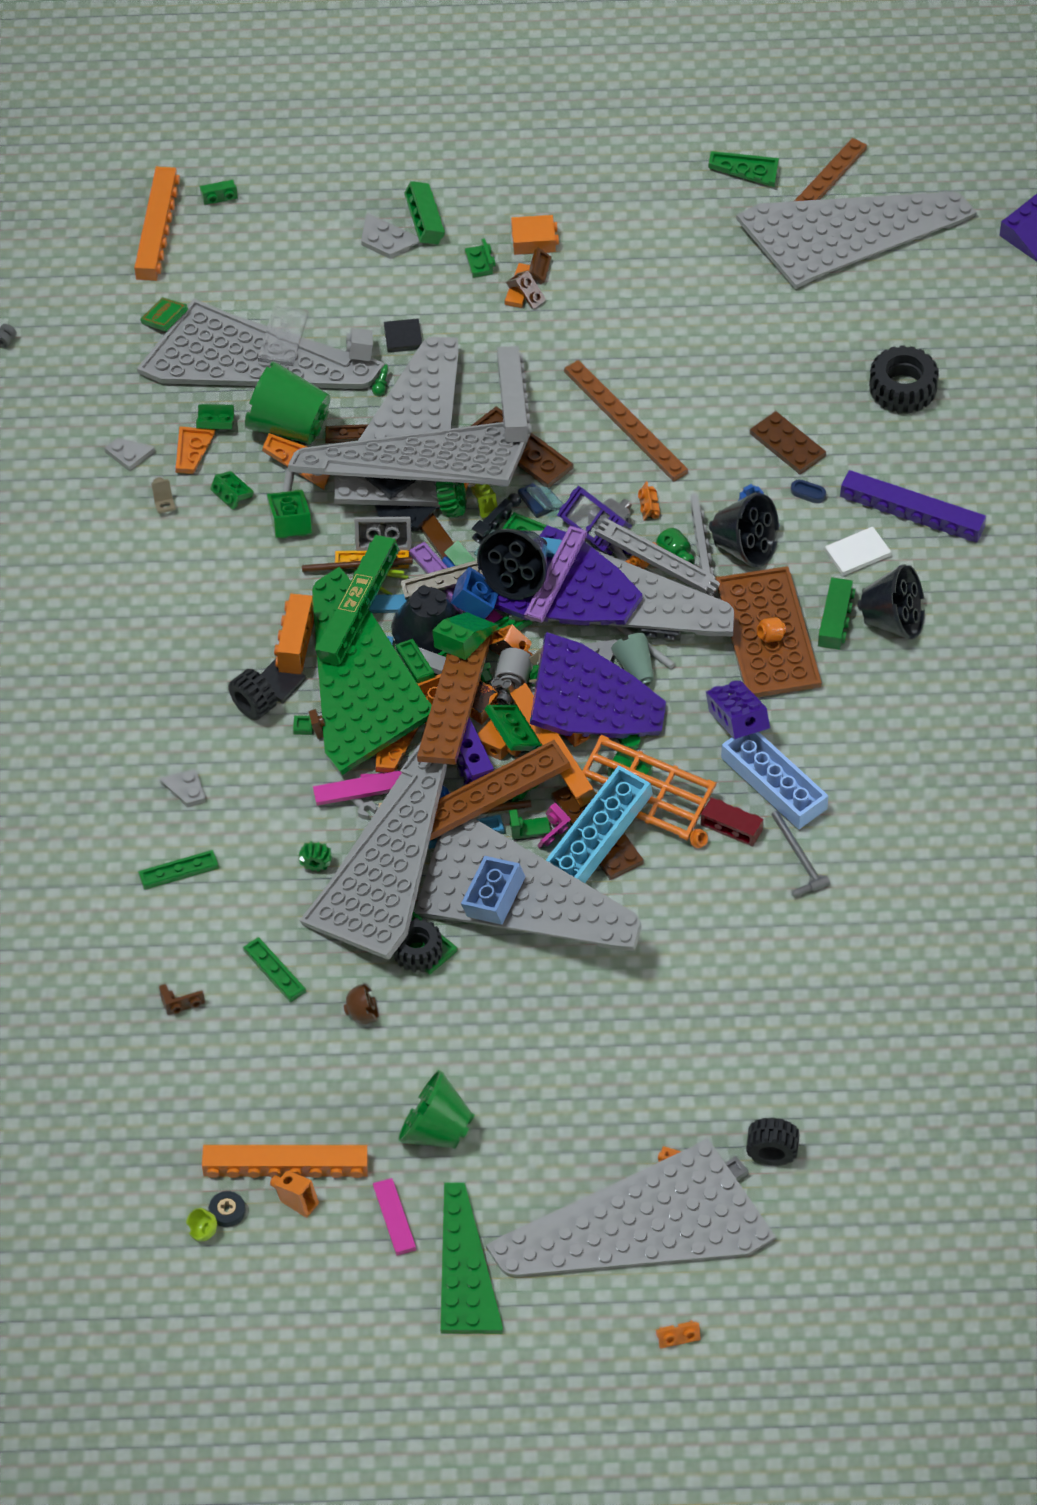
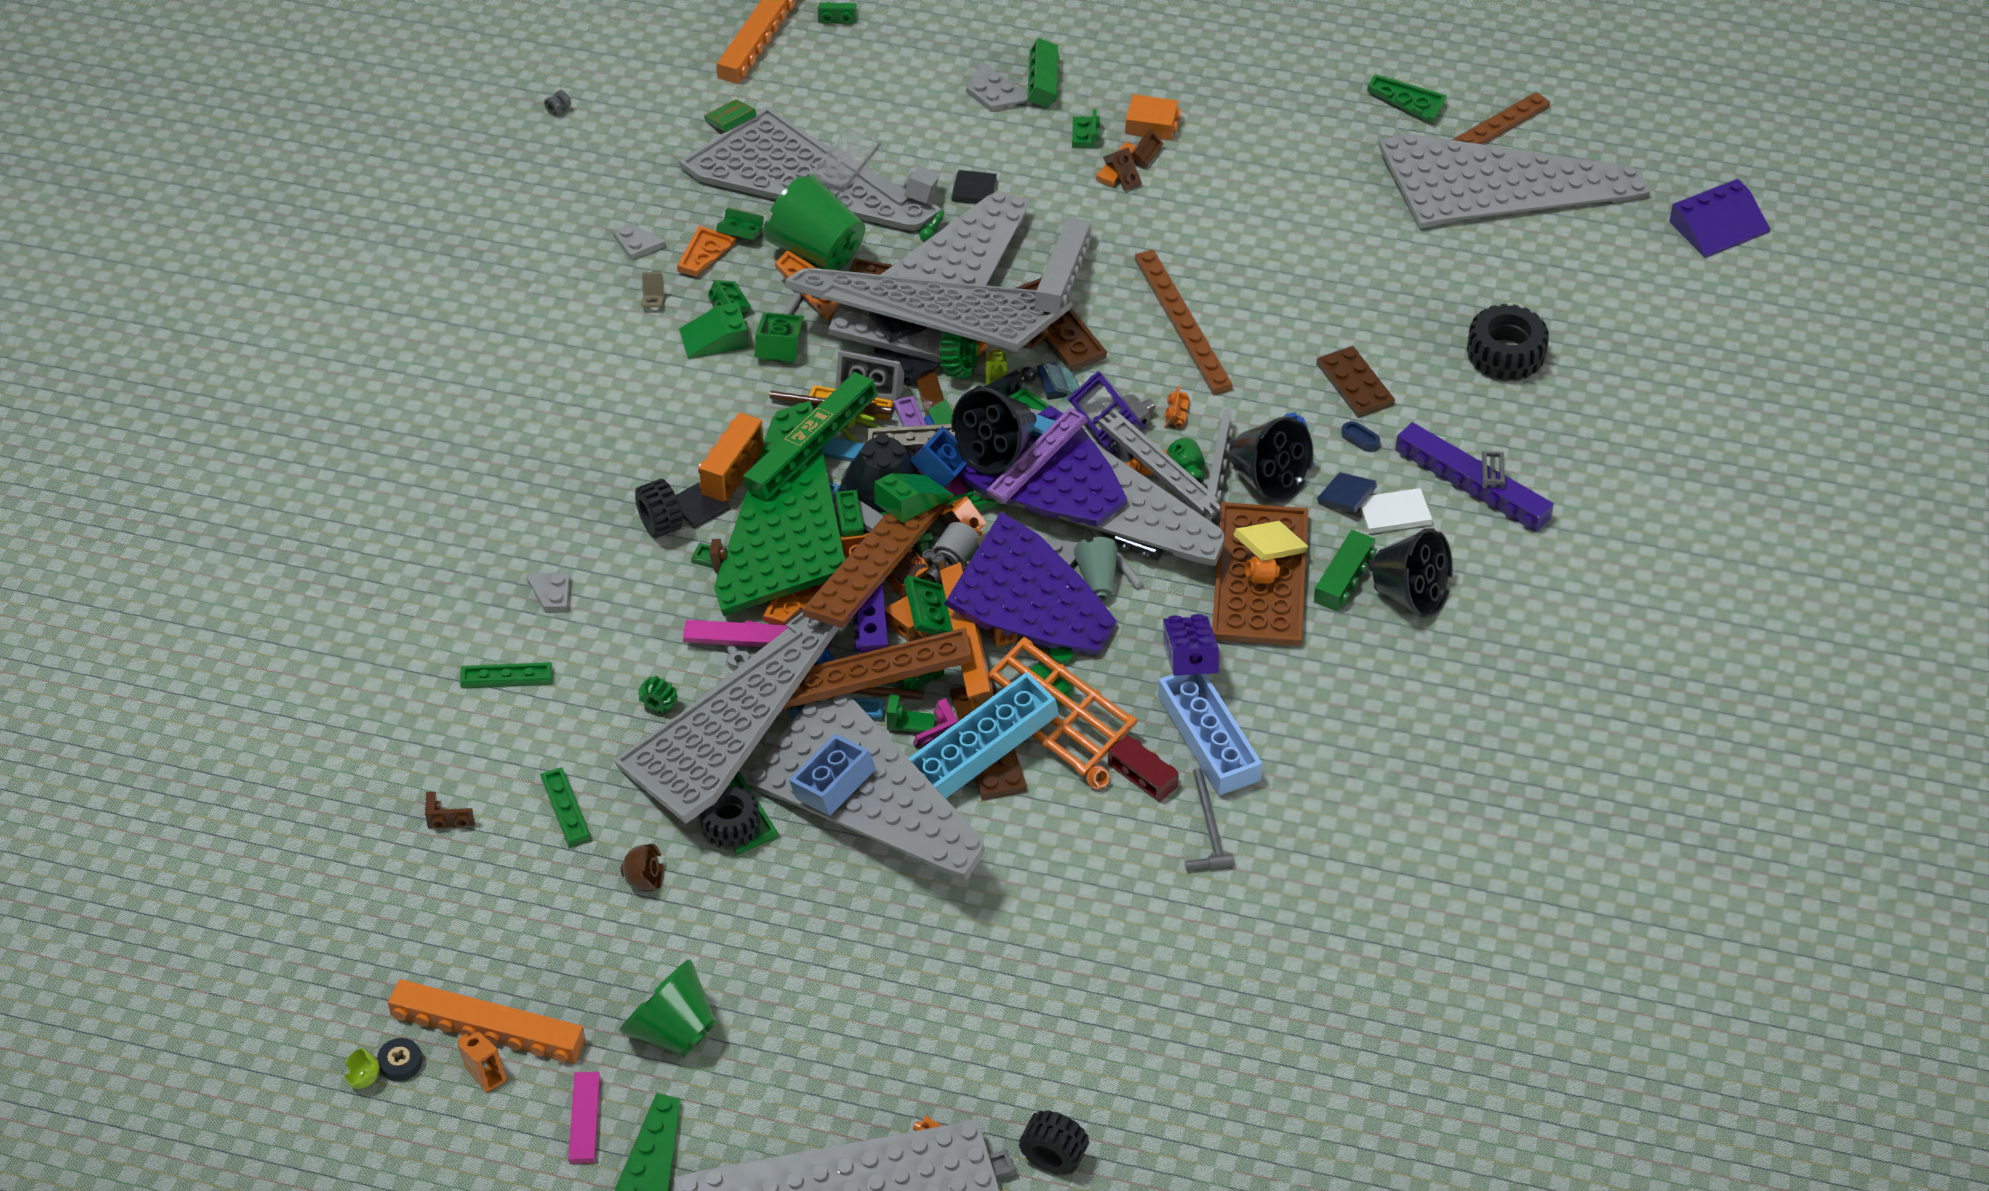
camera: 15 degrees right, 5 degrees down
(232, 522) = (715, 332): none -> green slope
(770, 603) = (1270, 540): none -> light yellow tile
(815, 544) = (1347, 492): none -> dark blue tile
(931, 508) = (1493, 481): none -> flat silver tile

